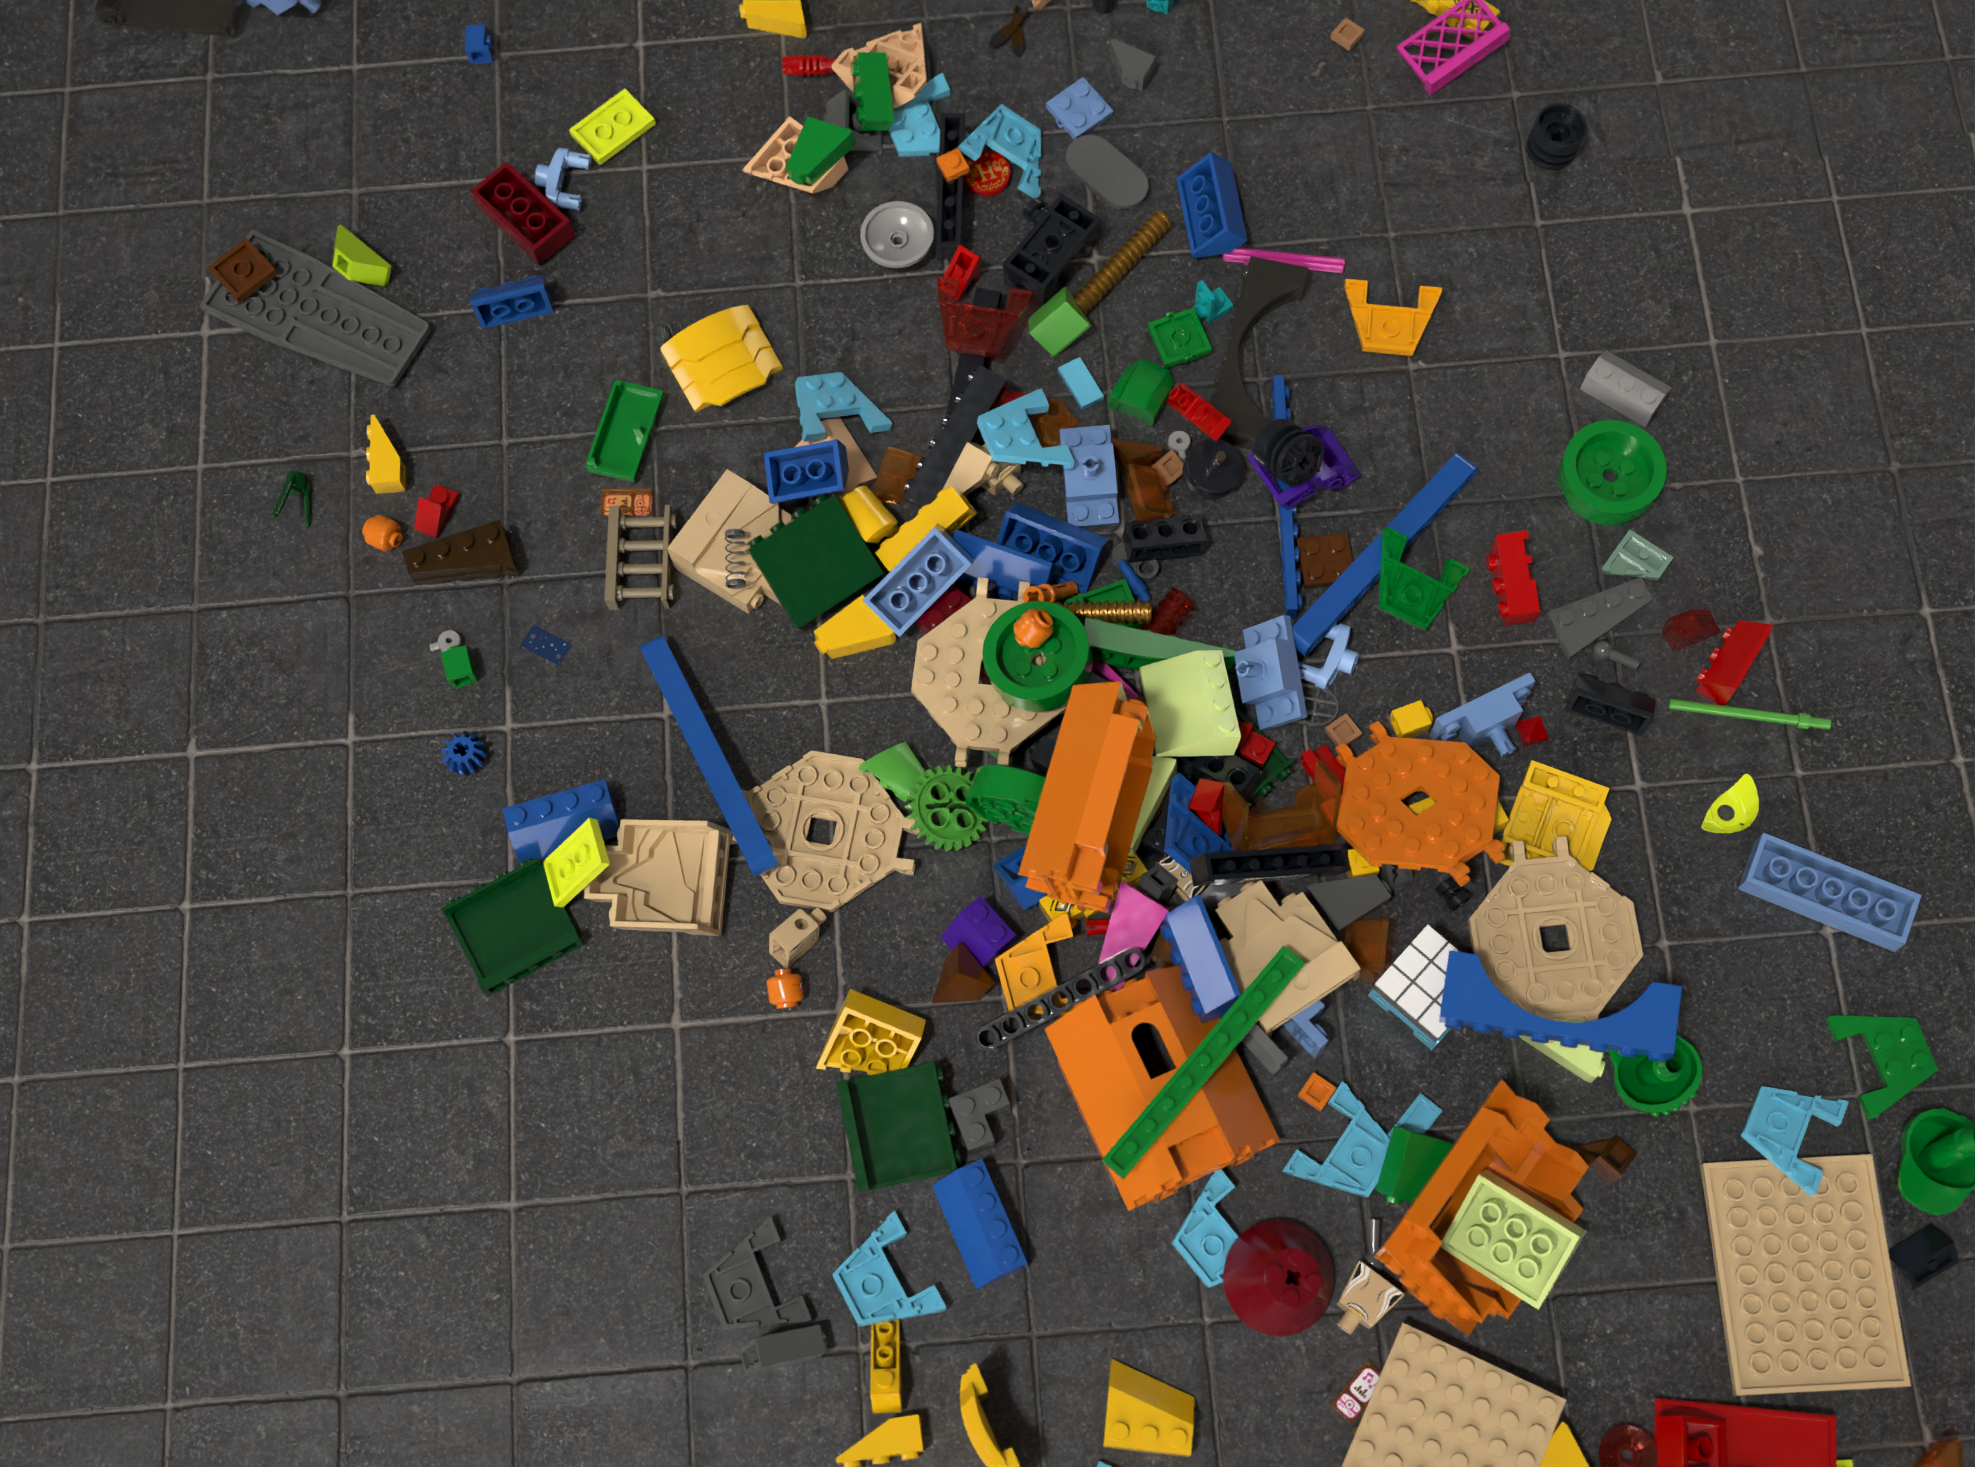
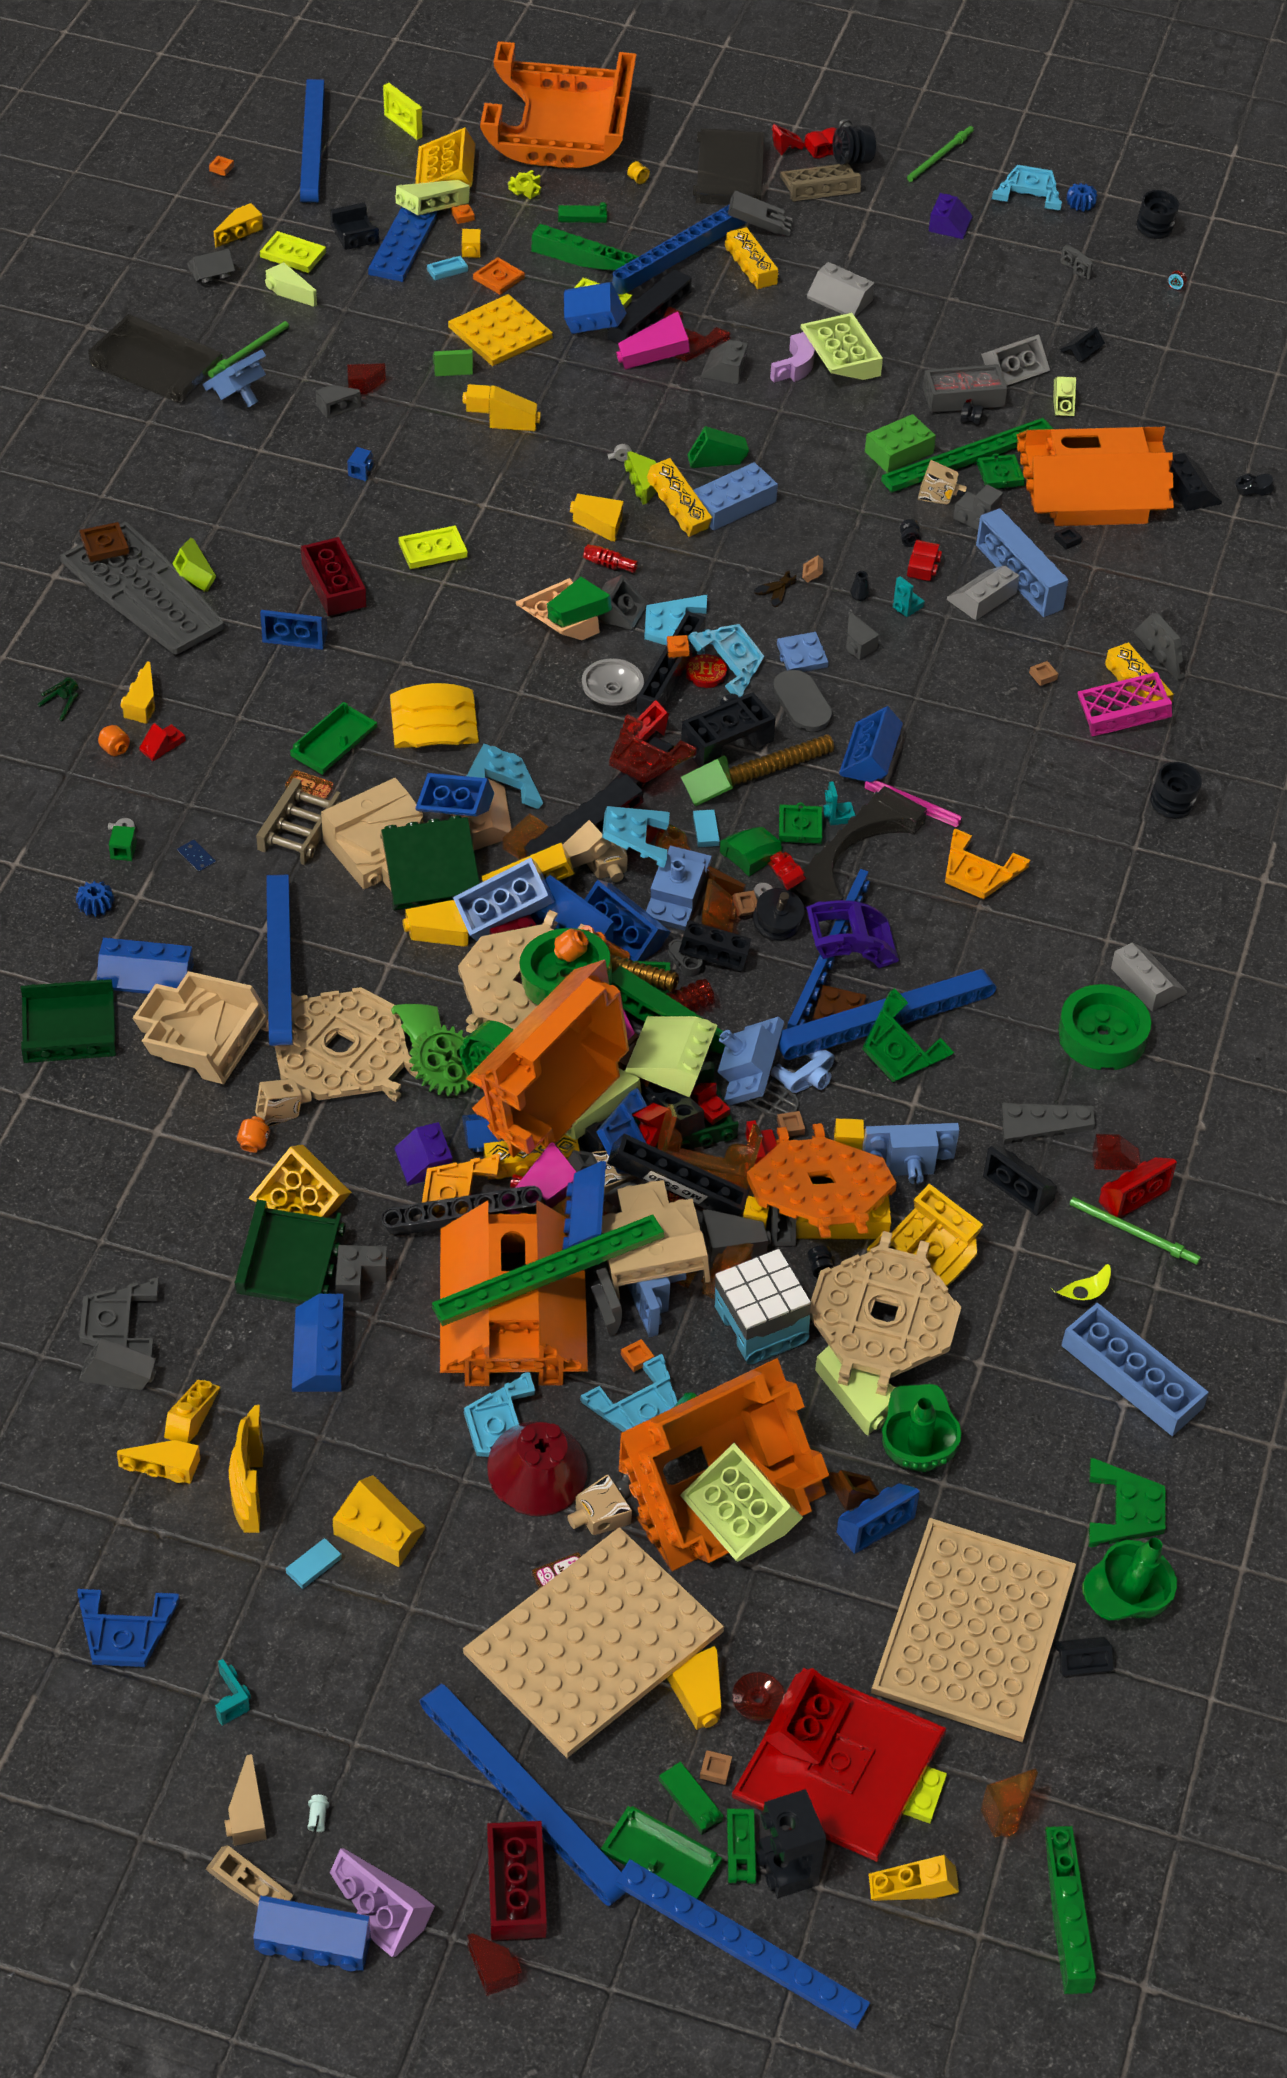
camera: 15 degrees right, 20 degrees down
(463, 556) = (165, 774): dark brown wedge -> none
(553, 177) = (370, 562): light blue connector -> none
(576, 862) = (139, 990): neon yellow plate -> none
(735, 534) = (362, 847): dark grey piece -> none
(869, 515) = (489, 848): yellow brick -> none
(872, 91) = (642, 582): green brick -> none
(873, 1287) = (211, 1353): medium azure wing -> none
(904, 63) = (661, 576): light nougat wedge -> none
(962, 978) = (396, 1180): reddish brown slope -> none
(1134, 581) = (676, 966): blue animal -> none
(1288, 452) = (837, 907): black wheel -> none
(1512, 579) = (985, 1066): red wedge -> none
(1531, 731) = (947, 1180): red slope -> none
(1604, 651) = (1037, 1148): dark grey bar -> none
(1637, 559) = (1095, 1091): sand green wing -> none
(1642, 1028) = (908, 1364): blue arch -> none
(1651, 1185) = (878, 1516): none -> blue slope
(1778, 1127) = (1011, 1513): medium azure wing -> none

